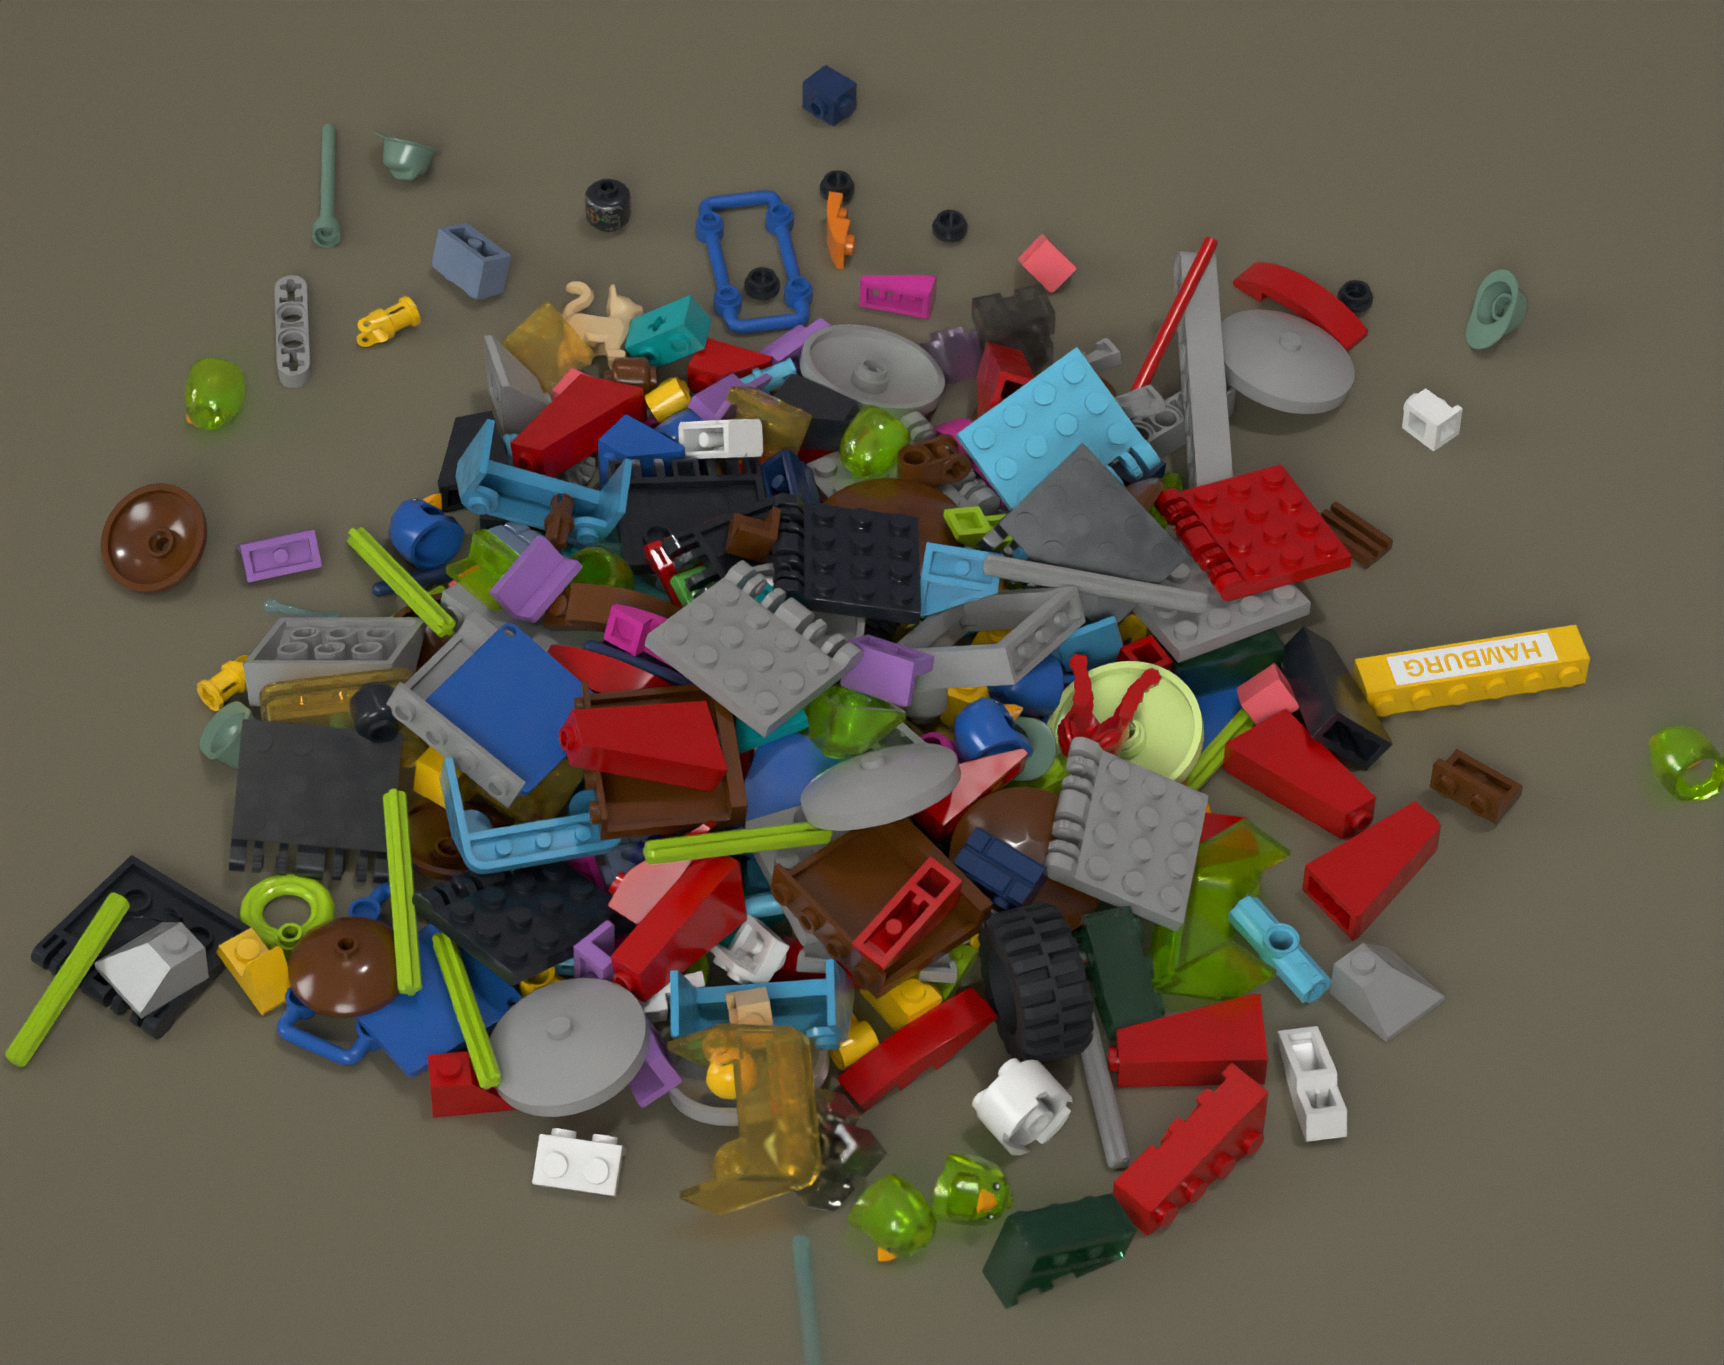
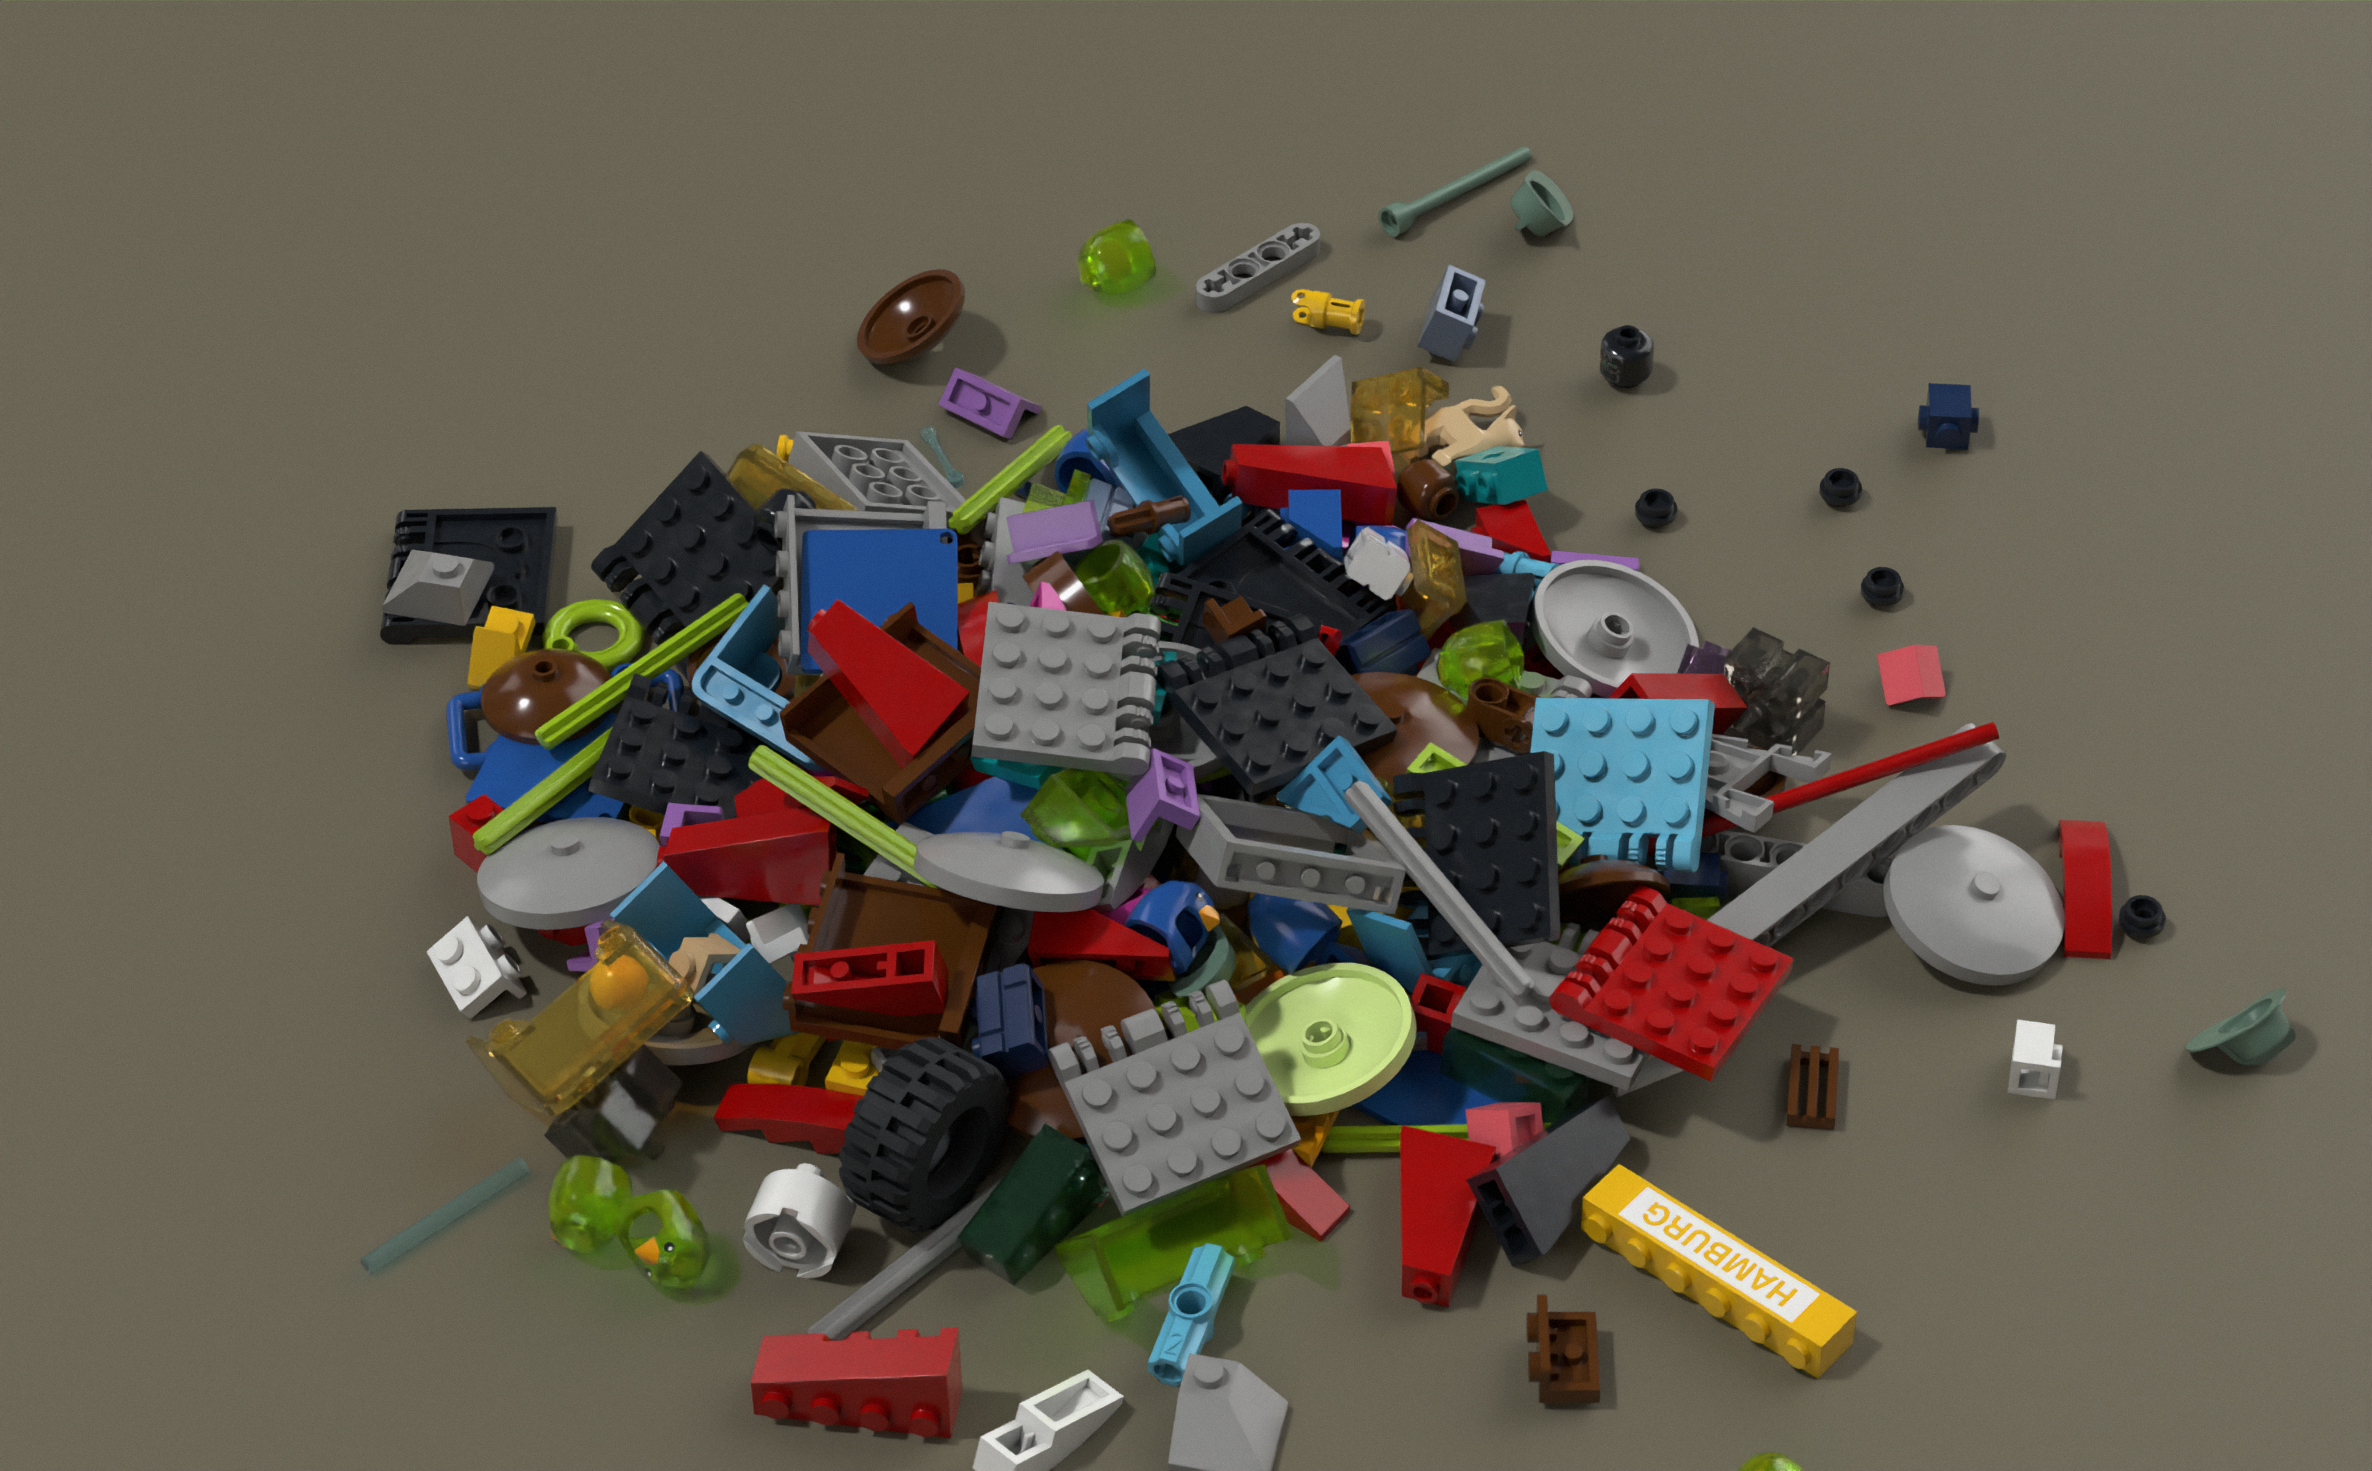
camera: 55 degrees right, 5 degrees down
(67, 980) = (380, 545): lime axle -> none
(668, 398) = (1401, 510): yellow piece -> none
(727, 299) = (1676, 534): blue bar -> none
(839, 239) = (1780, 510): orange slope -> none
(911, 294) = (1749, 599): dark pink slope -> none
(1055, 1242) = (662, 1339): clear green wedge -> none
(1082, 722) = (1276, 1001): red hair -> none
(1193, 1046) = (1008, 1319): red slope -> none
(1371, 868) = (1373, 1331): red slope -> none

